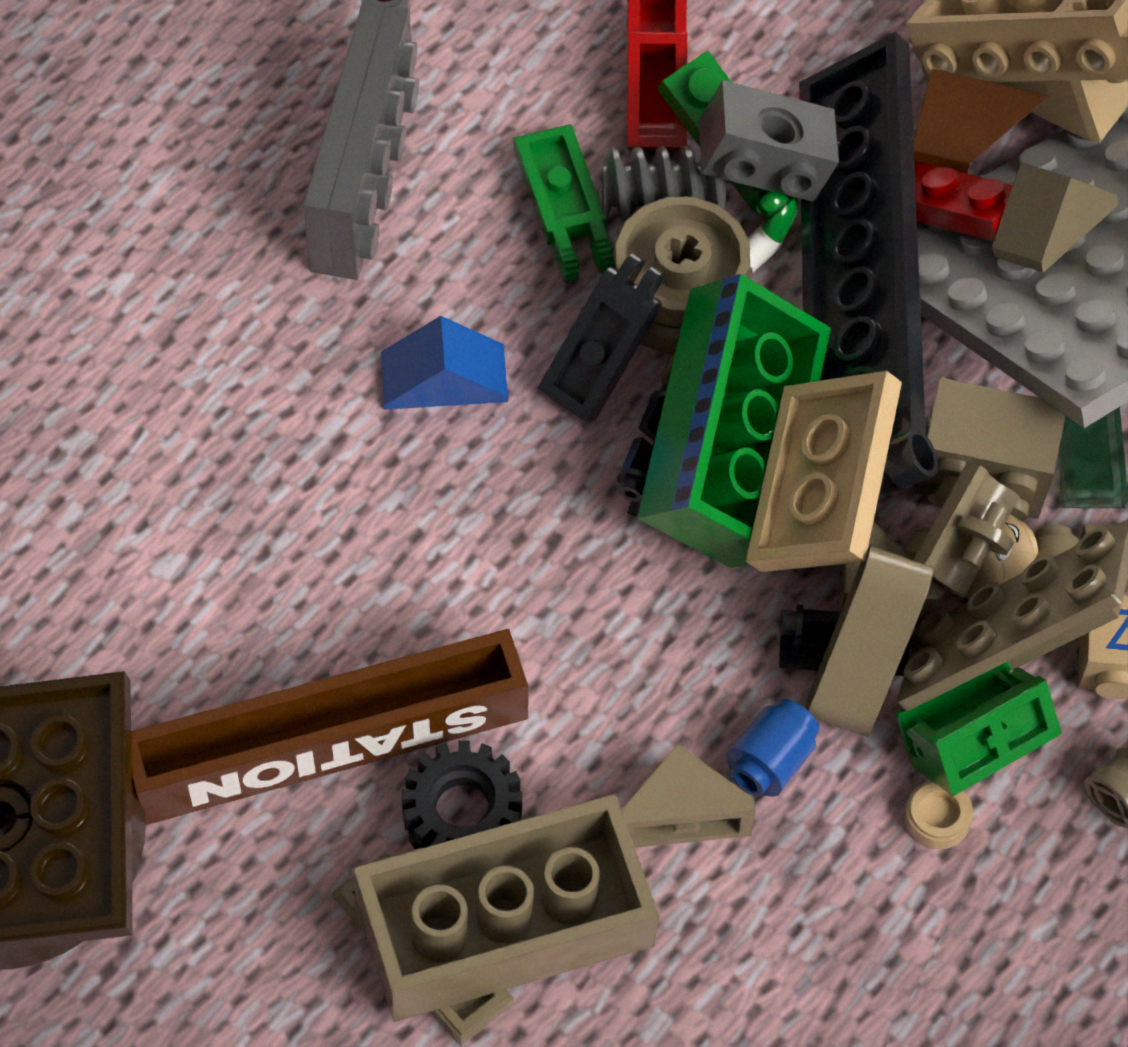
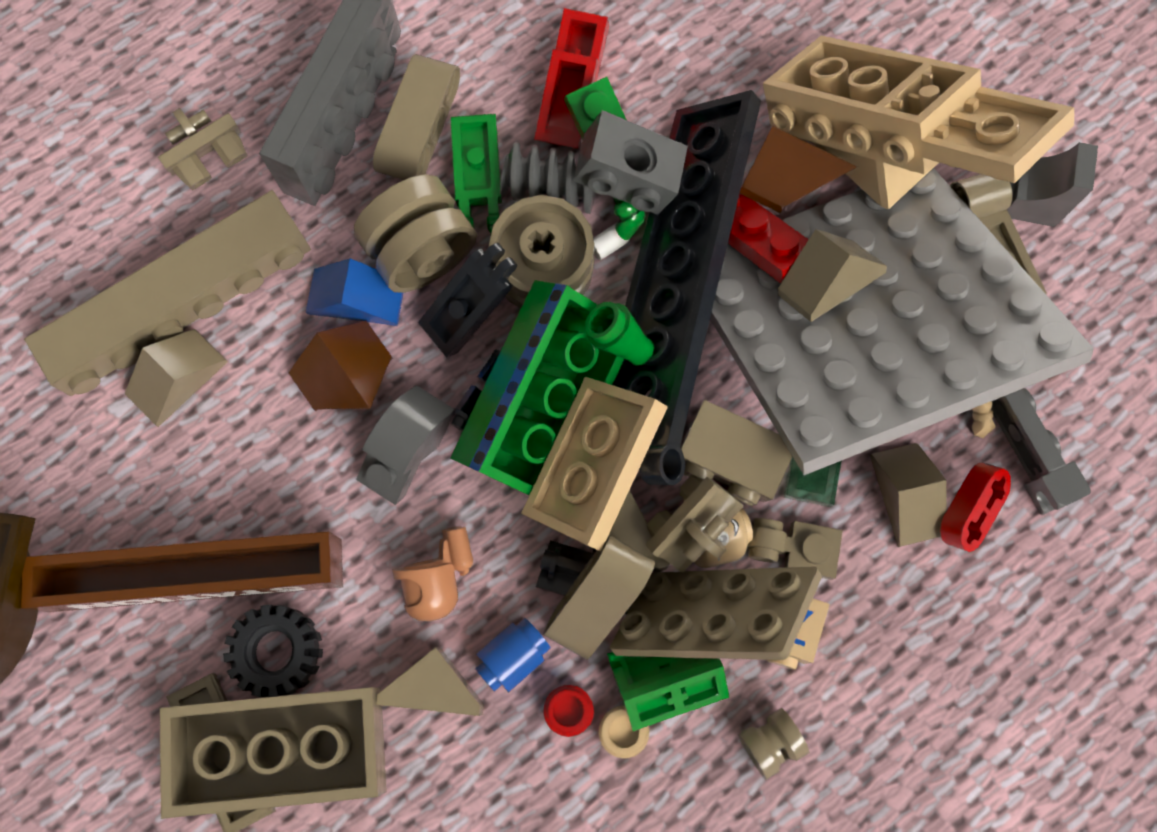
camera: 15 degrees right, 15 degrees up
(204, 412) = (168, 295): none -> dark tan brick
(216, 215) = (185, 157): none -> dark tan hips
(228, 511) = (171, 373): none -> dark tan slope
(451, 460) = (342, 368): none -> reddish brown slope
(468, 149) = (416, 118): none -> dark tan beam
(515, 274) = (414, 233): none -> dark tan wheel
(560, 527) = (401, 440): none -> dark grey brick
(647, 682) = (431, 584): none -> nougat piece
(812, 322) = (617, 332): none -> green cone
(861, 802) = (568, 710): none -> red plate

